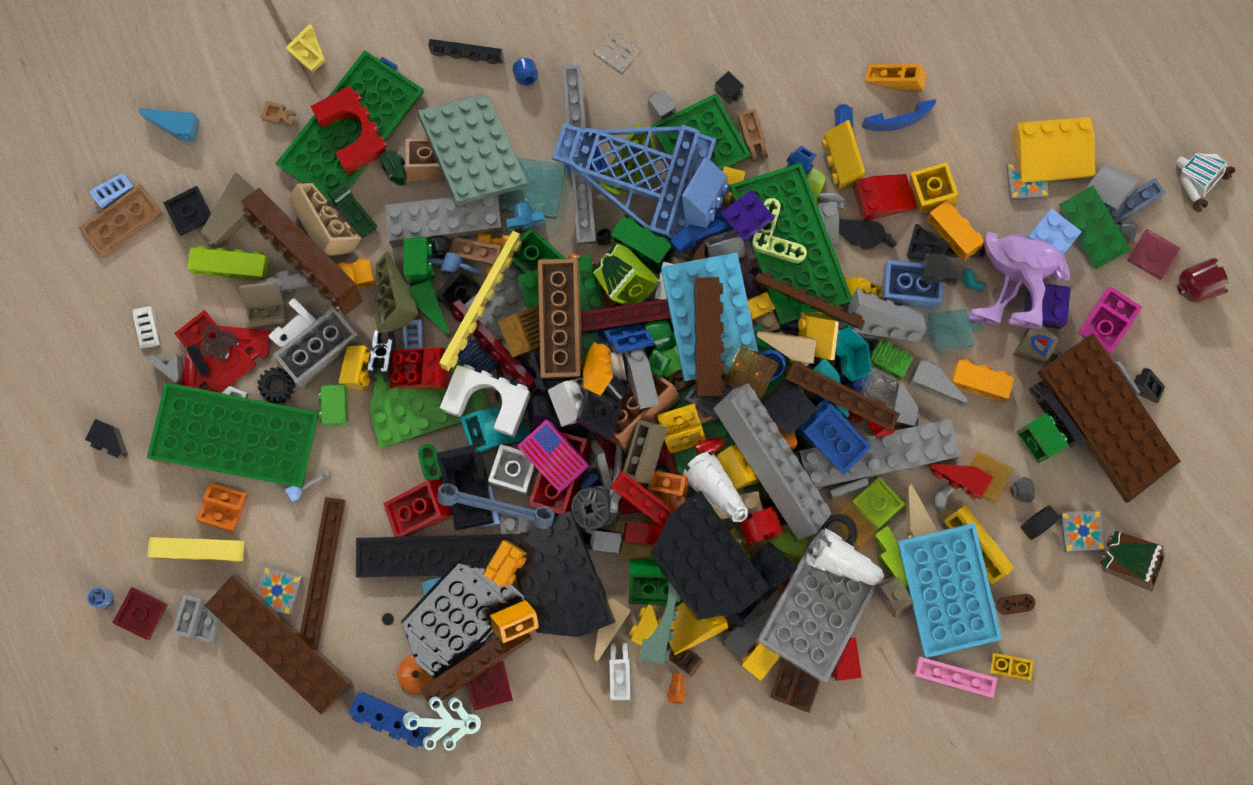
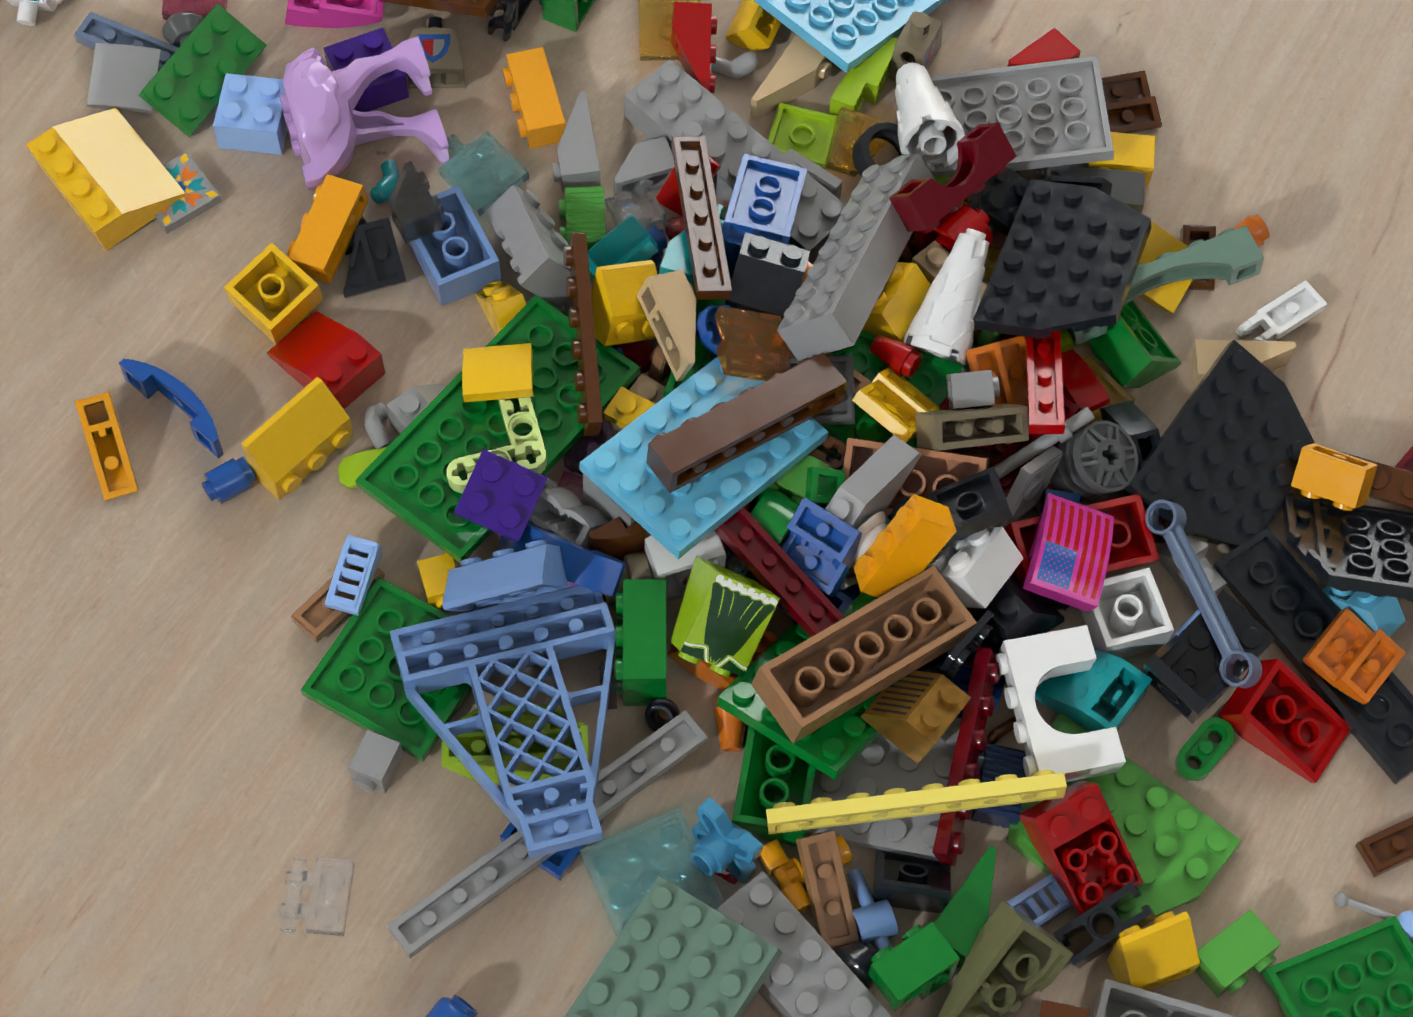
camera: 125 degrees left, 15 degrees down
(423, 560) = (1353, 656): none -> orange slope
(505, 563) = (1268, 533): light orange brick -> none
(646, 626) = (1201, 312): yellow slope -> none
(664, 464) = (972, 389): none -> light grey brick
(729, 88) = (277, 676): black brick -> none
(761, 155) = (372, 554): none -> light blue slope
(777, 510) = (981, 155): none -> dark red arch
(804, 157) = (343, 498): blue brick -> none
(817, 253) = (497, 372): none -> yellow slope
(864, 233) = (403, 352): black animal -> none

